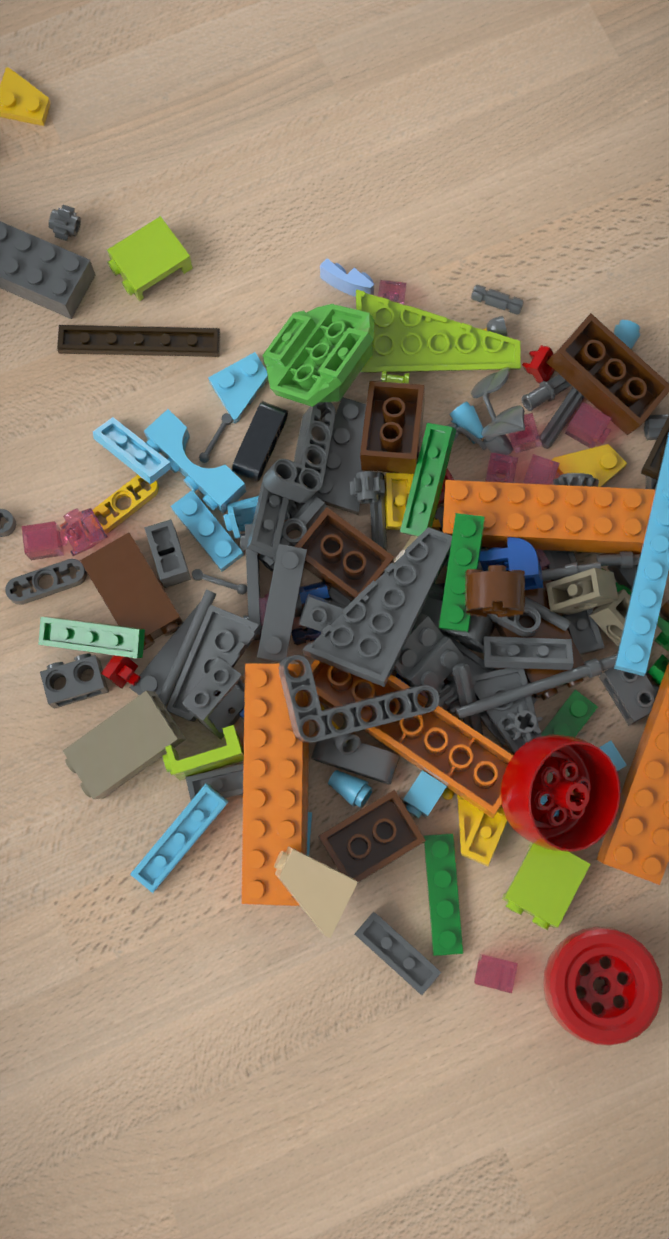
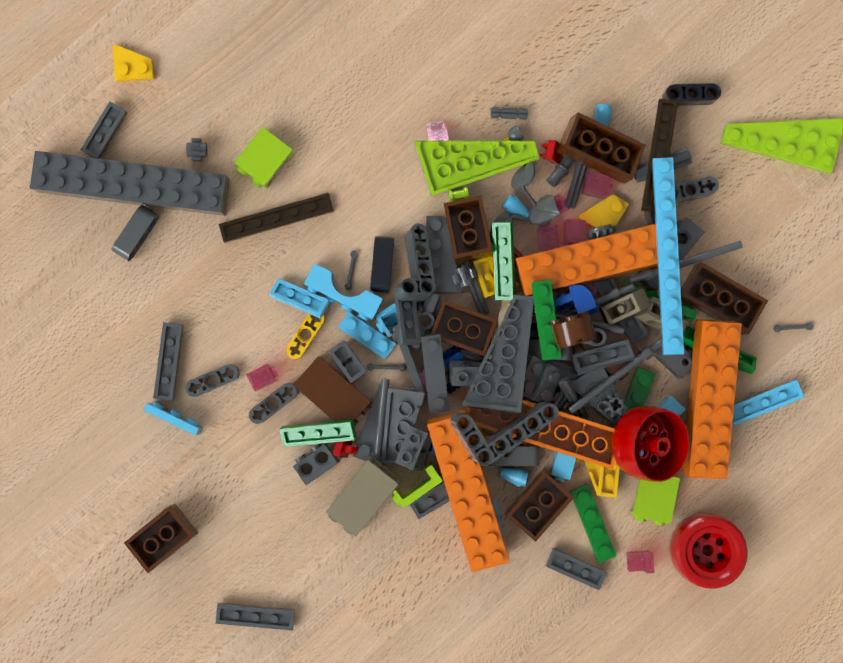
camera: 20 degrees left, 10 degrees up
(82, 530) = (286, 363): clear pink brick -> none
(179, 837) = (417, 541): medium azure tile -> none
(239, 384) = (354, 227): medium azure wing -> none
(316, 888) = (517, 550): tan slope -> none
(319, 353) = (403, 194): bright green piece -> none
(348, 283) = (410, 132): light blue slope -> none

